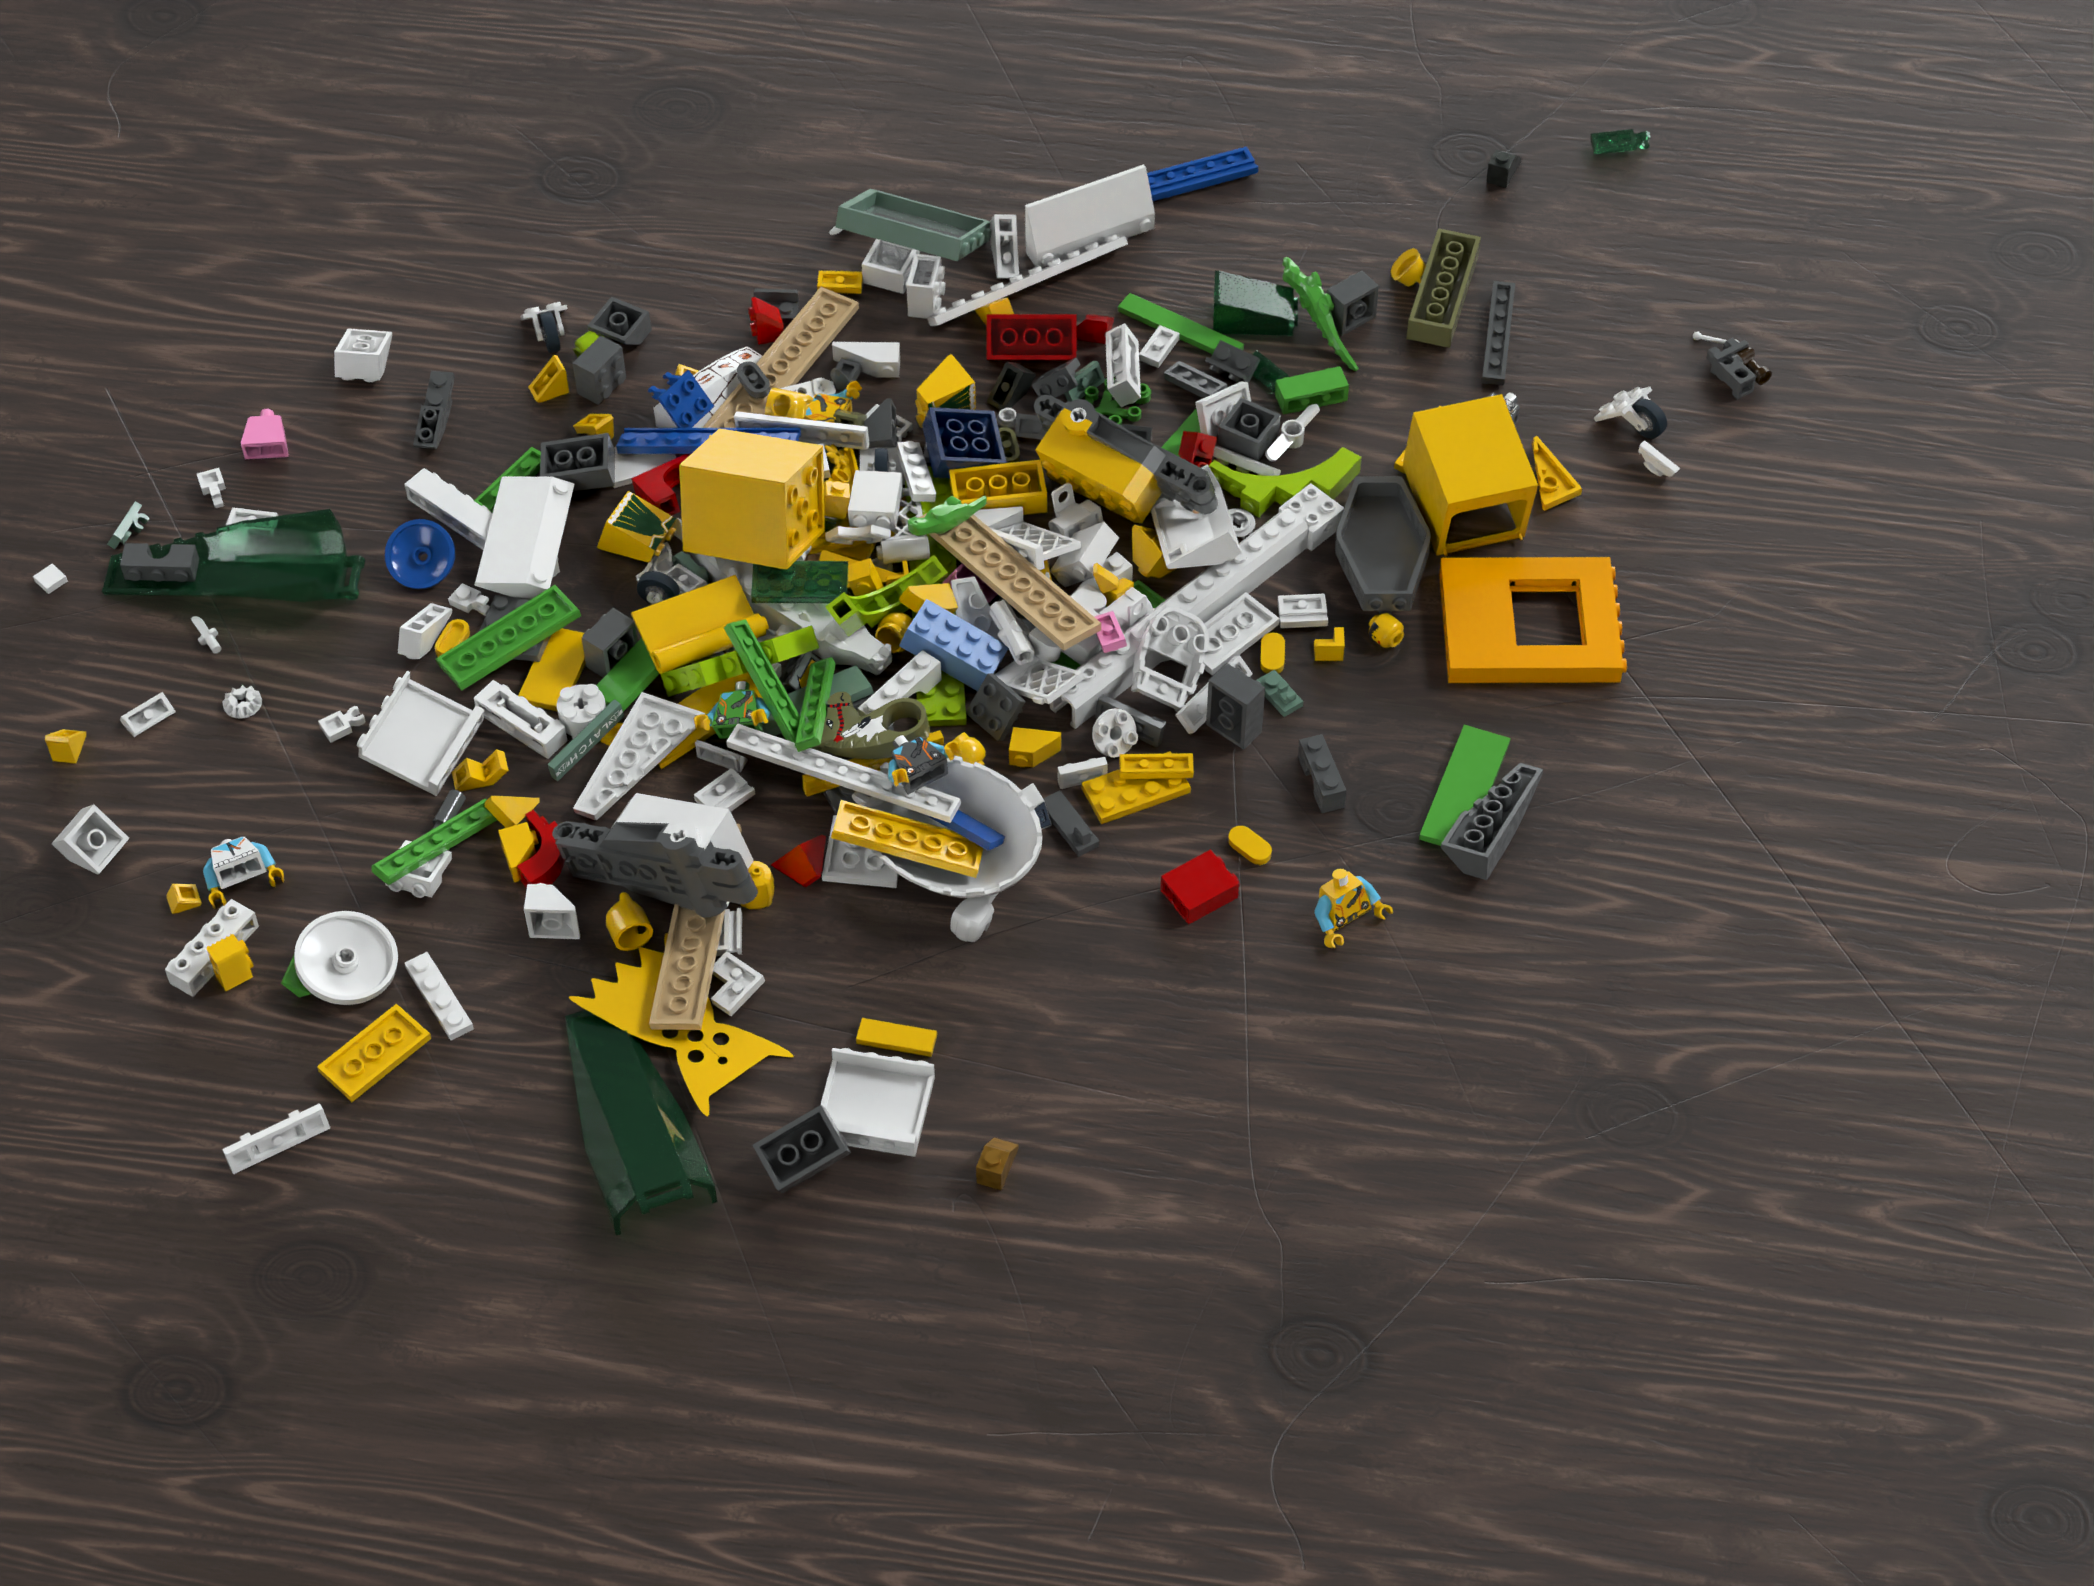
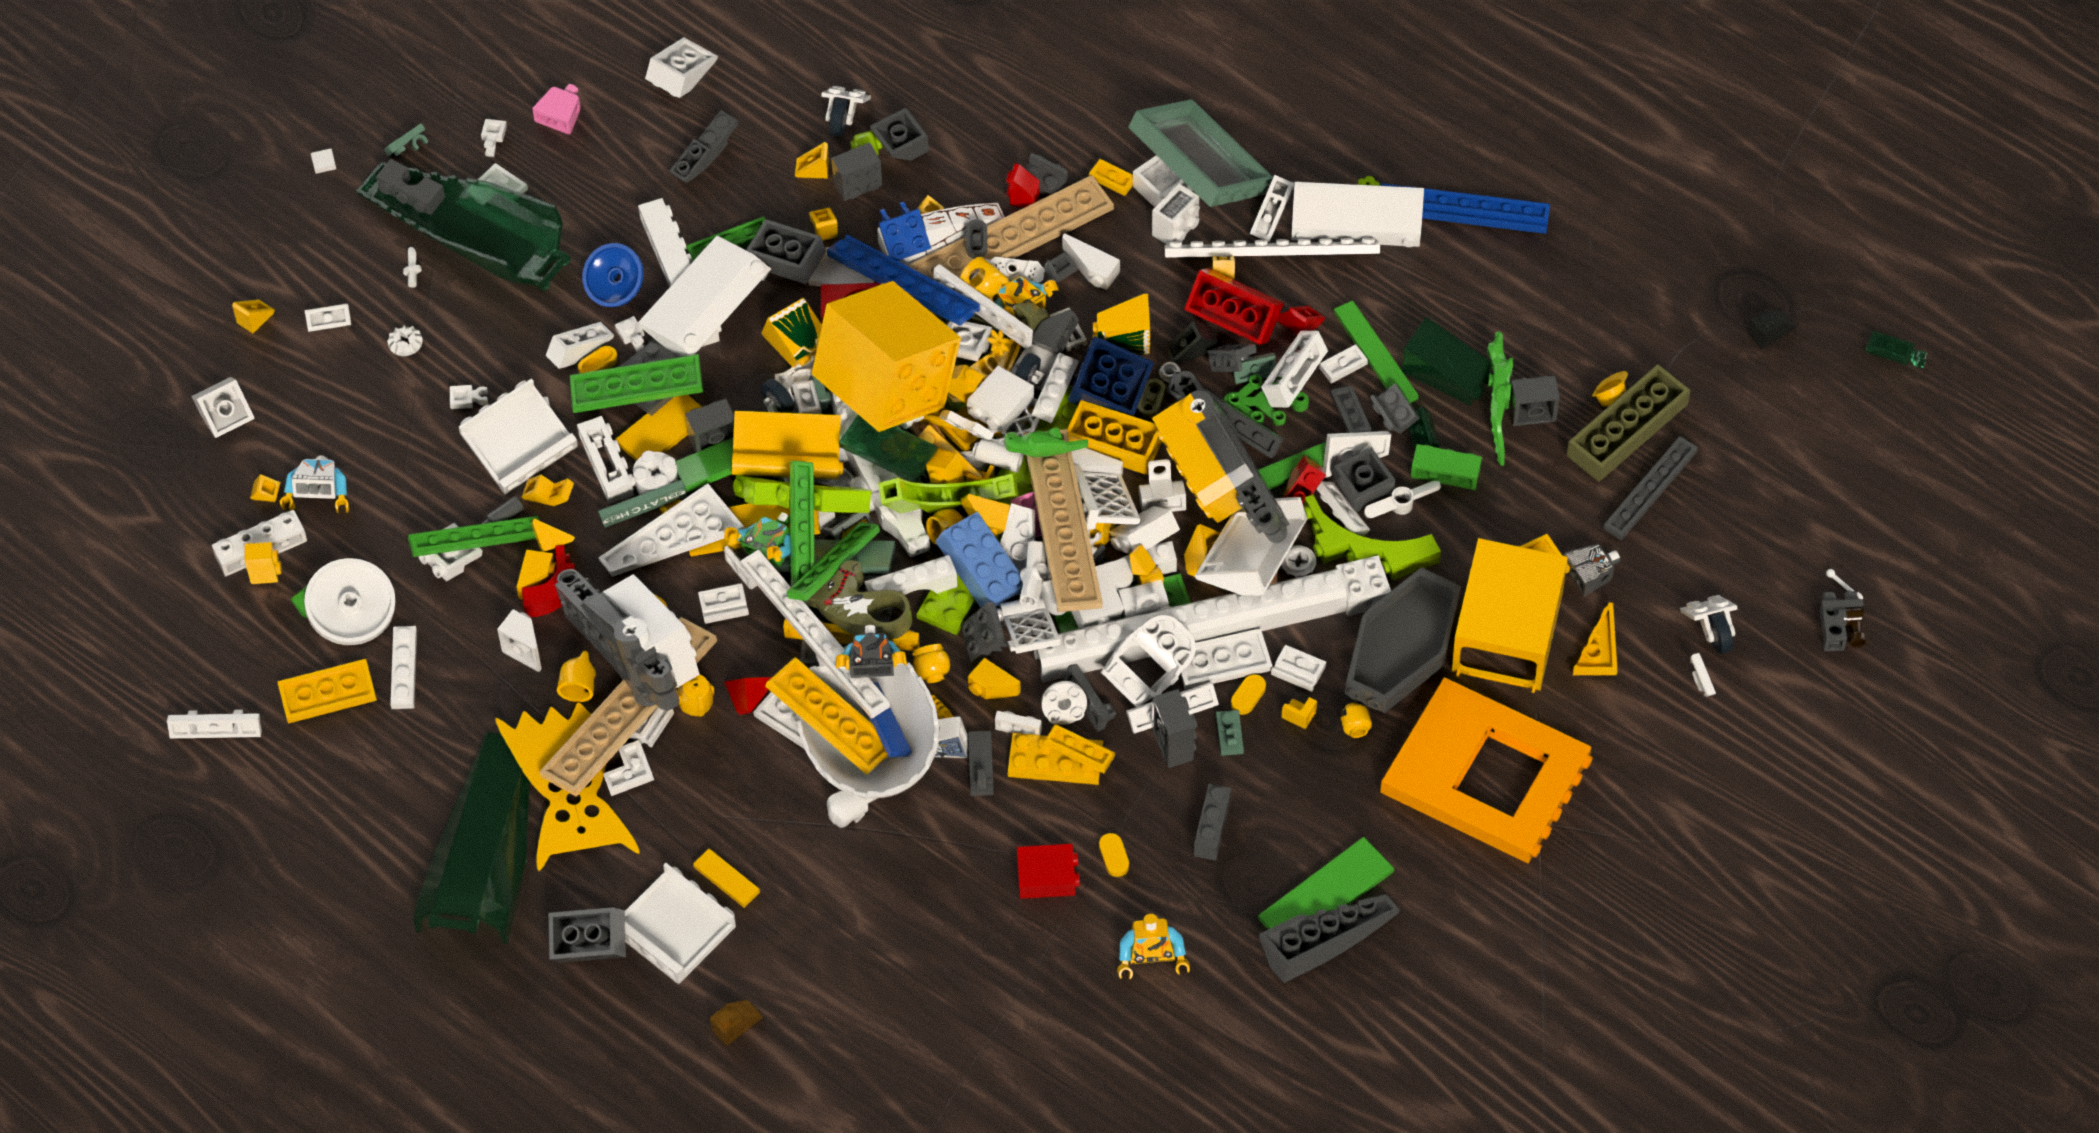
camera: 30 degrees right, 5 degrees up
(1111, 635) = (1108, 616): bright pink plate -> none

